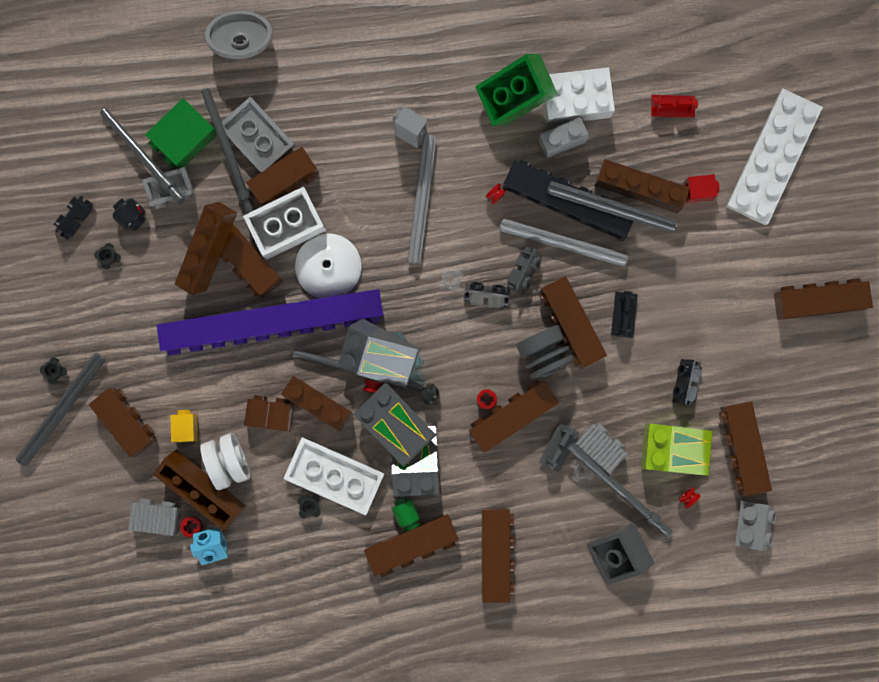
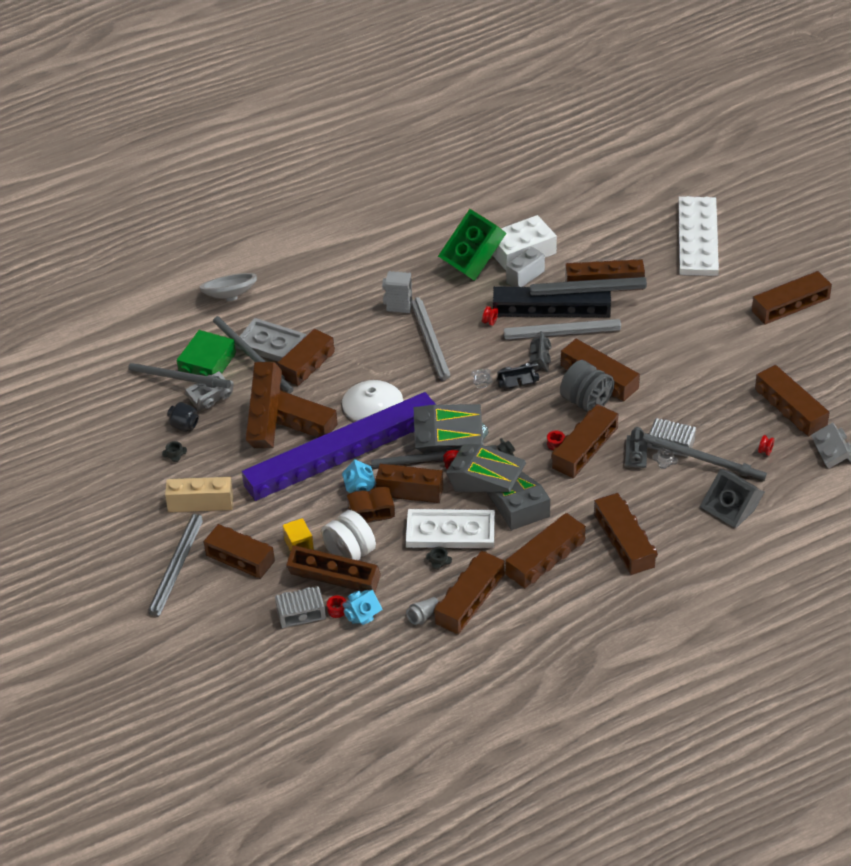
camera: 20 degrees left, 40 degrees down
(47, 368) = (157, 539): pearl dark grey plate -> none
(67, 223) = (134, 428): black hinge -> none
(108, 332) = (199, 494): none -> tan brick
(267, 568) = (421, 611): none -> light grey cone
(269, 379) = (358, 477): none -> medium azure brick
(284, 223) = (324, 377): white brick -> none
(318, 566) = (469, 592): none -> reddish brown brick
(406, 514) = (526, 529): green brick -> none
(624, 314) = (638, 353): black hinge -> none
(673, 106) = (595, 230): red hinge -> none
(676, 449) = (733, 419): lime slope -> none
(688, 372) = (716, 377): black hinge -> none
(702, 188) = (654, 264): red brick -> none

